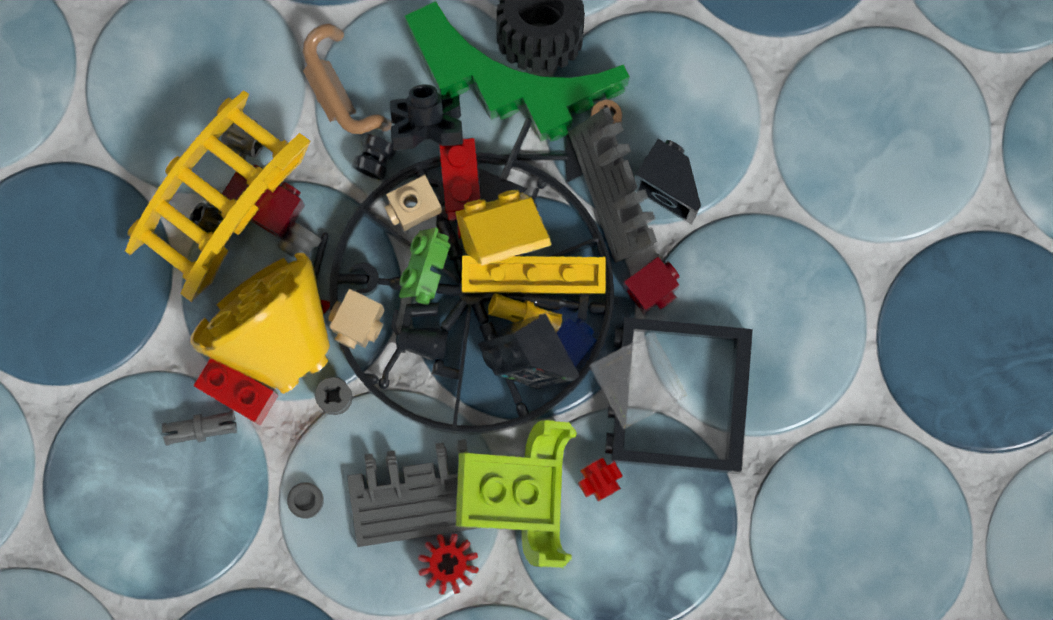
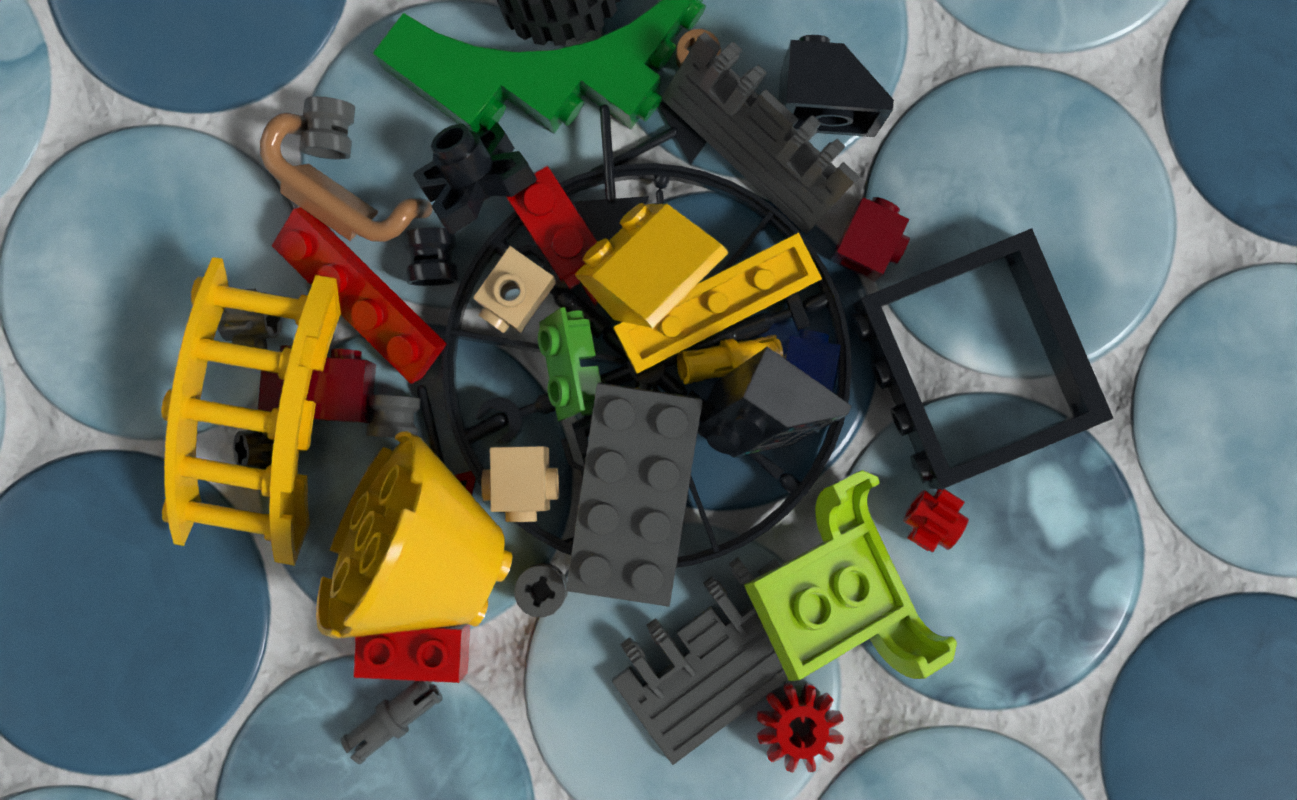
camera: 25 degrees left, 5 degrees up
(305, 500) = (575, 739): dark grey tile -> none
(320, 161) = (363, 296): none -> red plate
(352, 46) = (327, 128): none -> dark grey wheel
(420, 363) = (633, 494): none -> dark grey plate
(638, 380) = (924, 370): clear plate -> none

